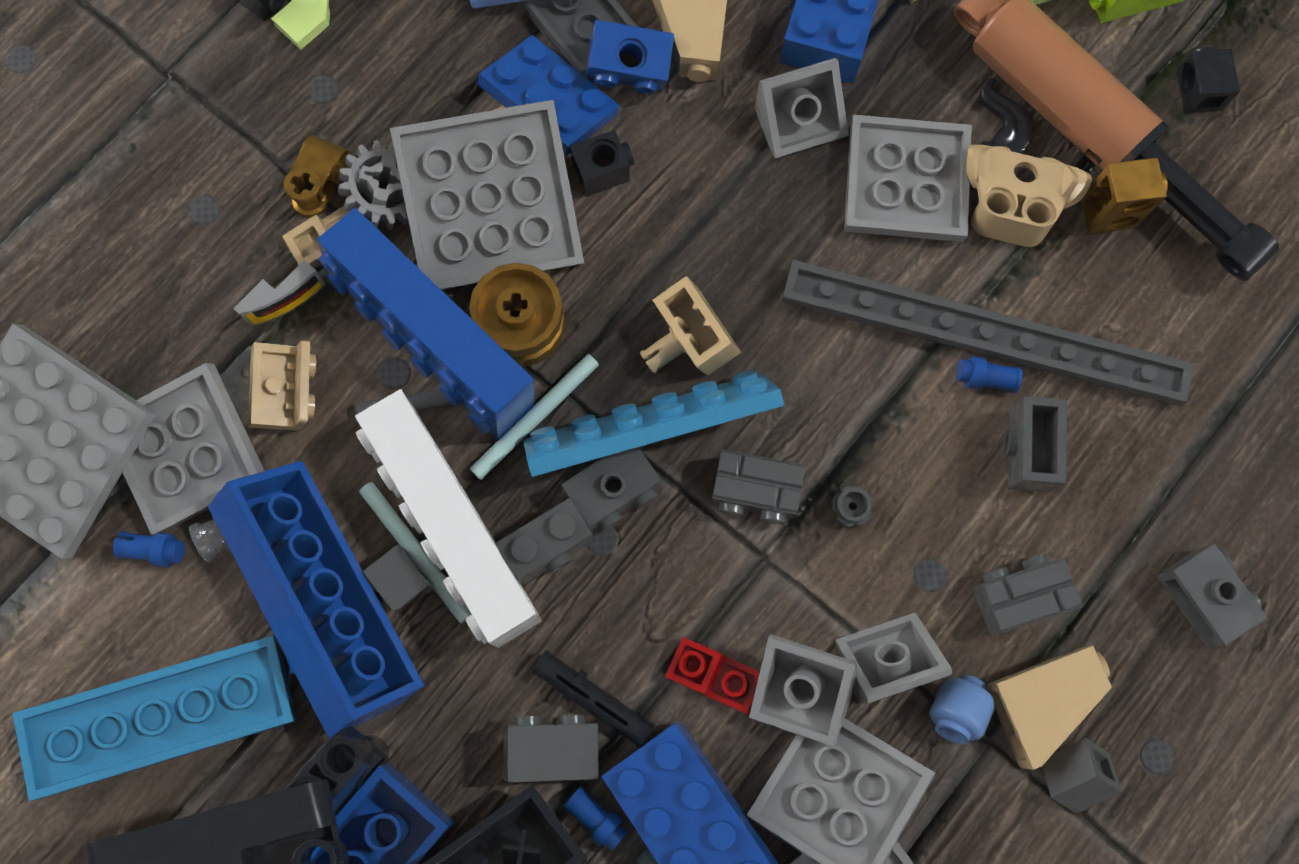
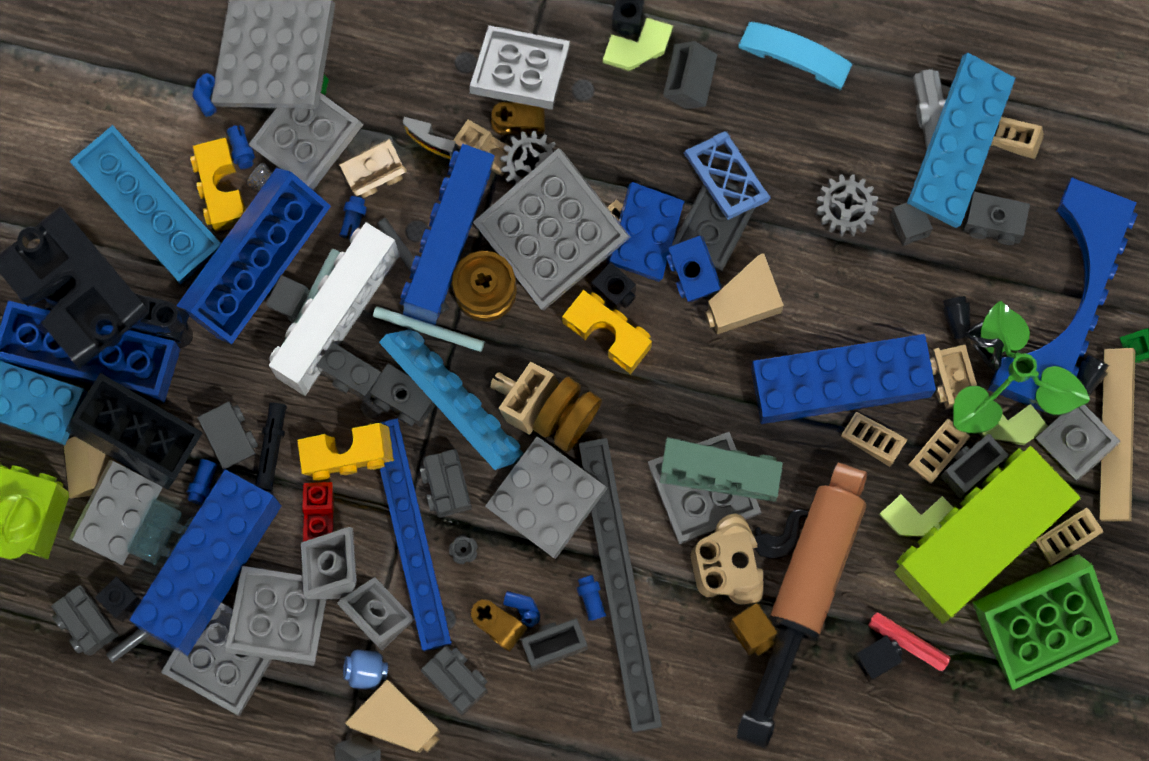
camera: 70 degrees right, 0 degrees up
(42, 564) = (203, 92): none -> blue arm
(150, 593) = (213, 162): none -> yellow arch
(251, 138) = (520, 67): none -> light grey plate
(324, 436) = (354, 212): none -> blue animal
(645, 635) = (369, 448): none -> yellow arch
(681, 178) = (589, 314): none -> yellow arch
(745, 287) = (567, 414): none -> pearl gold wheel
(802, 108) = (716, 398): light grey slope -> none
(803, 565) = (413, 545): none -> blue plate
(835, 368) = (546, 497): none -> light grey plate
(905, 140) = (720, 470): none -> sand green wedge
(966, 462) = (526, 607): none -> blue arm
(975, 504) = (502, 626): none -> pearl gold piece
(1203, 36) = (909, 641): none -> coral axle

